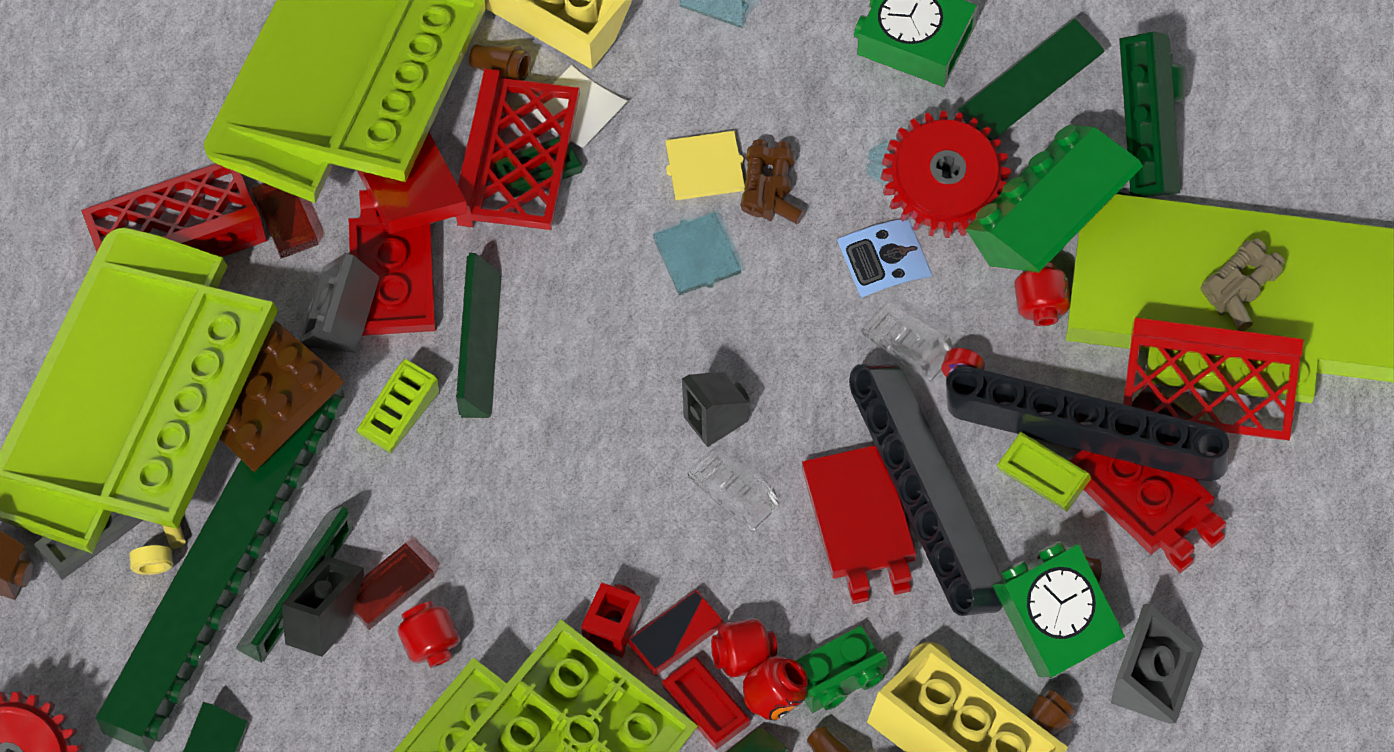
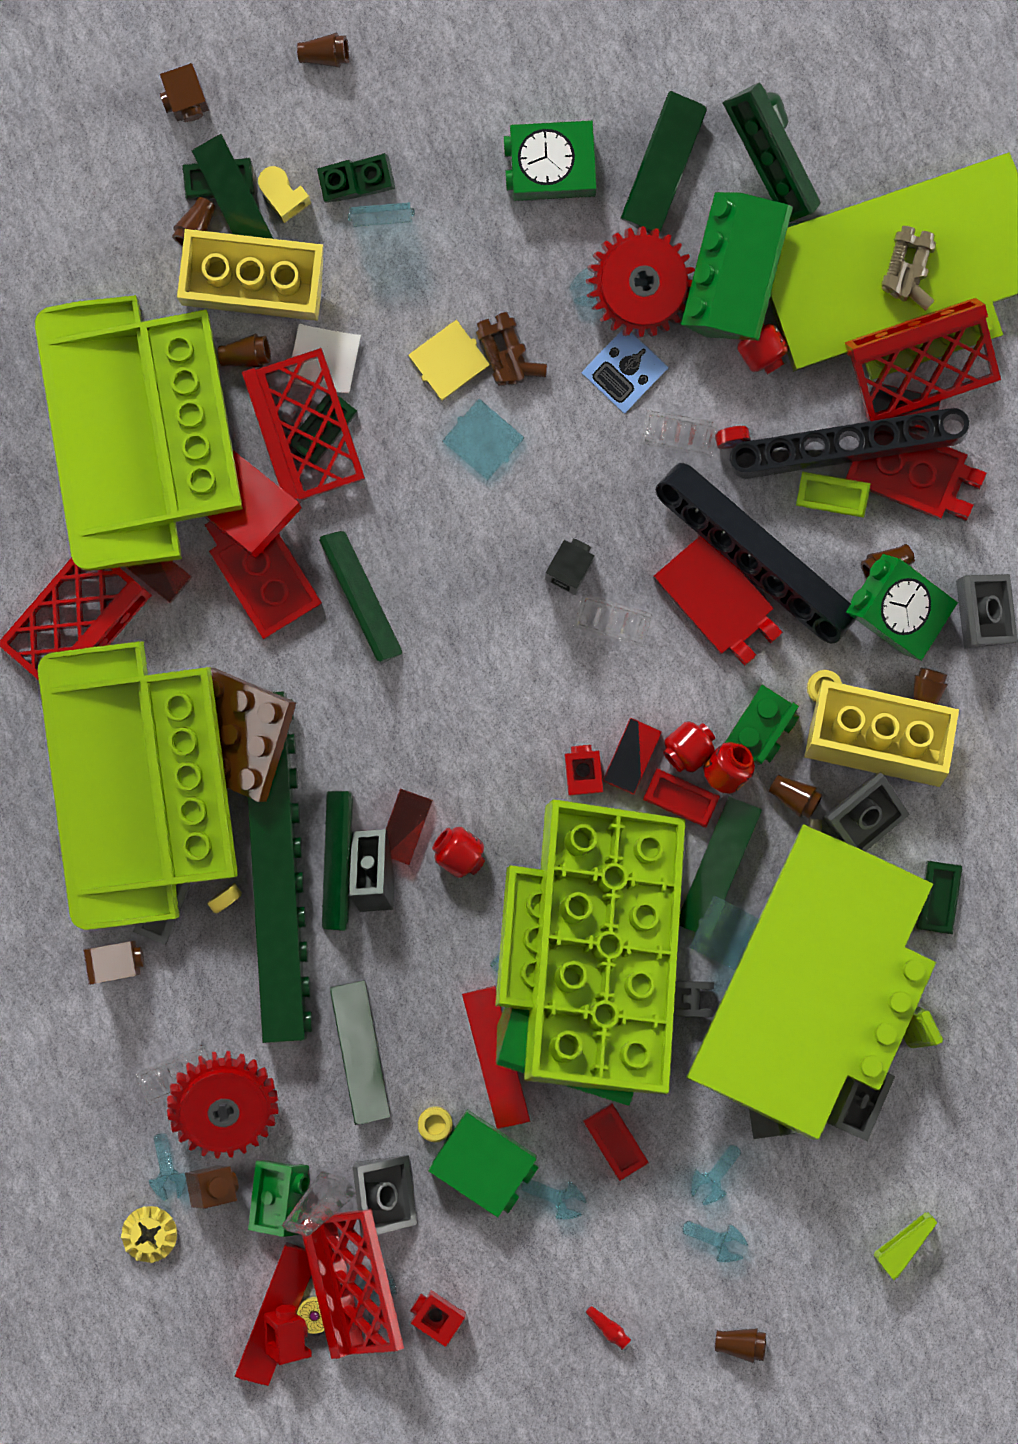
camera: 25 degrees left, 25 degrees up
(340, 305) = (244, 629): dark grey slope -> none
(397, 384) = (333, 654): lime slope -> none

